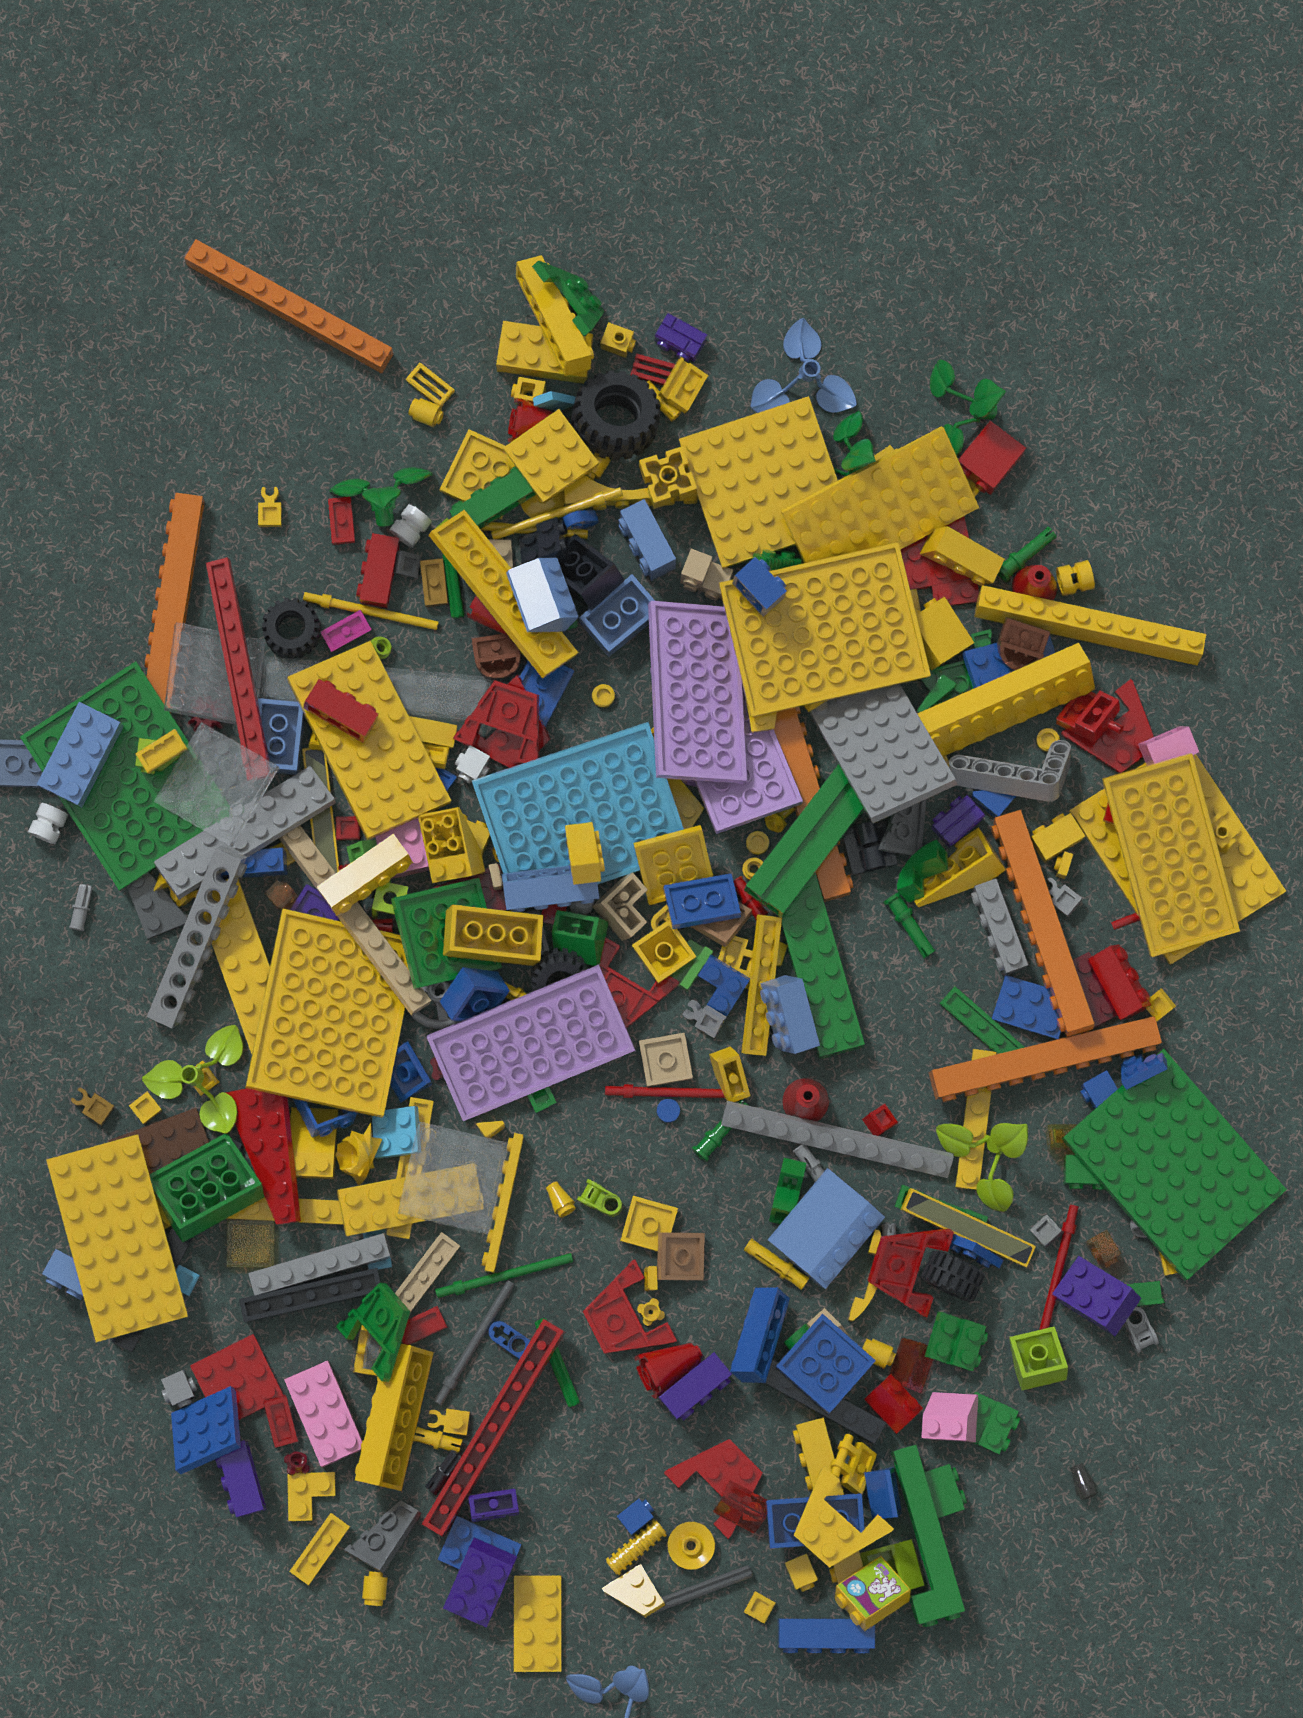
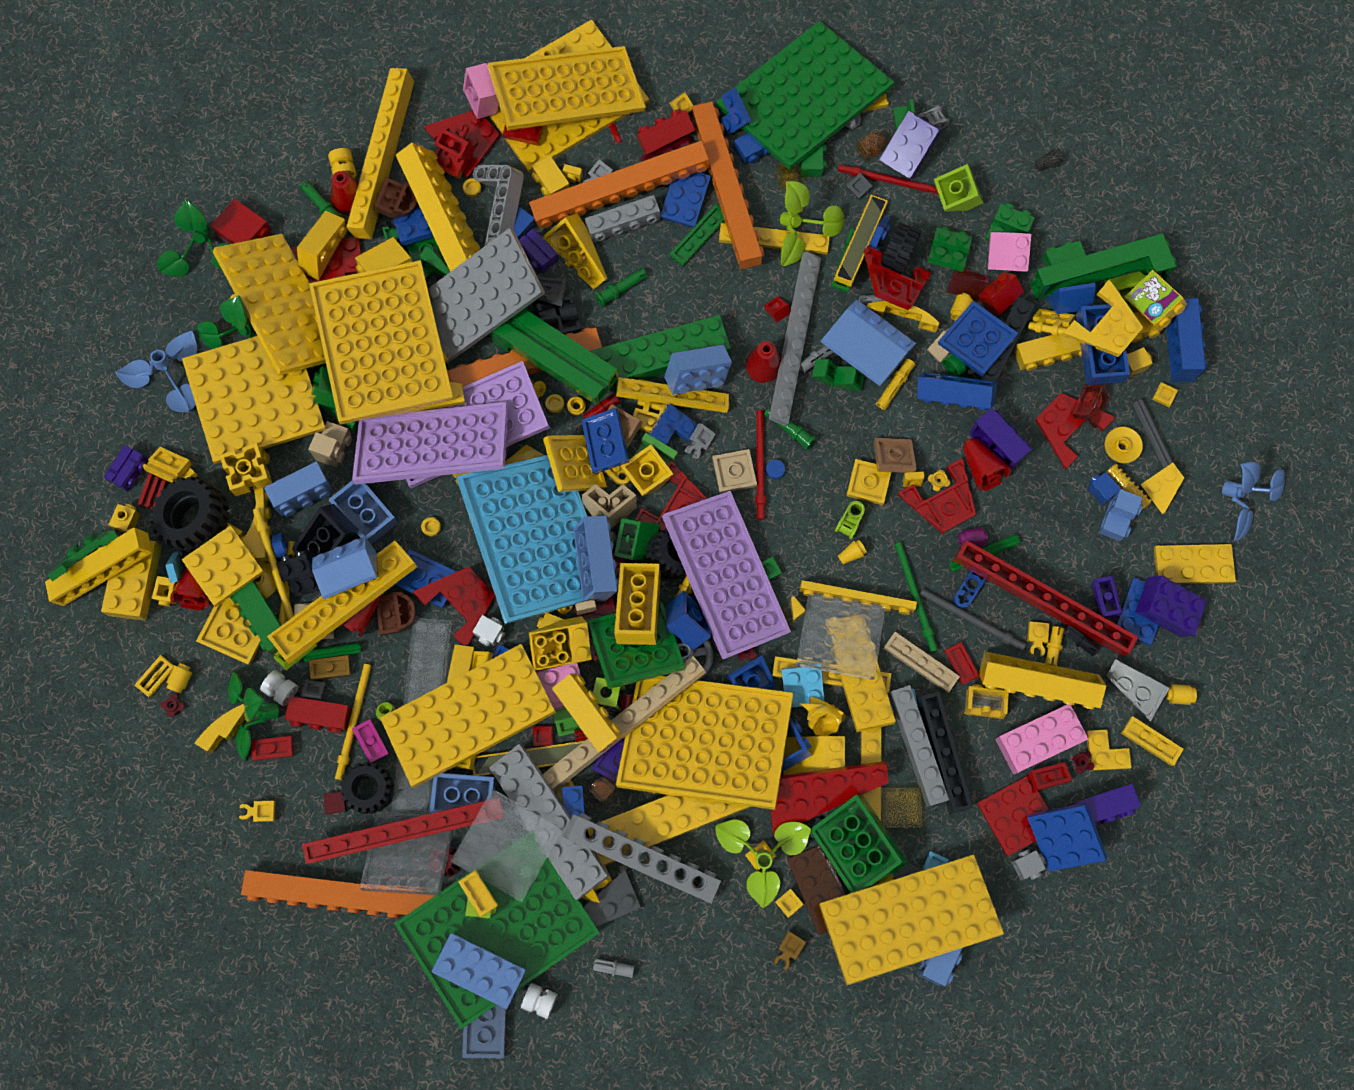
camera: 90 degrees left, 5 degrees down
(276, 591) = (334, 803): none -> dark red tile
(288, 306) = (74, 801): orange brick -> none
(341, 710) = (442, 736): red brick -> none
(365, 463) = (221, 728): none -> yellow slope
(385, 1320) = (966, 685): green wing -> none
(394, 412) = (171, 711): none -> dark red plate
(509, 711) = (444, 596): red wing -> none
(574, 1348) = (975, 536): none -> magenta brick
(584, 853) = (568, 527): yellow brick -> none
(596, 1530) = (1120, 511): none -> medium blue brick
(730, 1074) = (745, 419): yellow slope -> none
(760, 586) = (343, 383): blue brick -> none
(923, 864) = (572, 275): green brick -> none

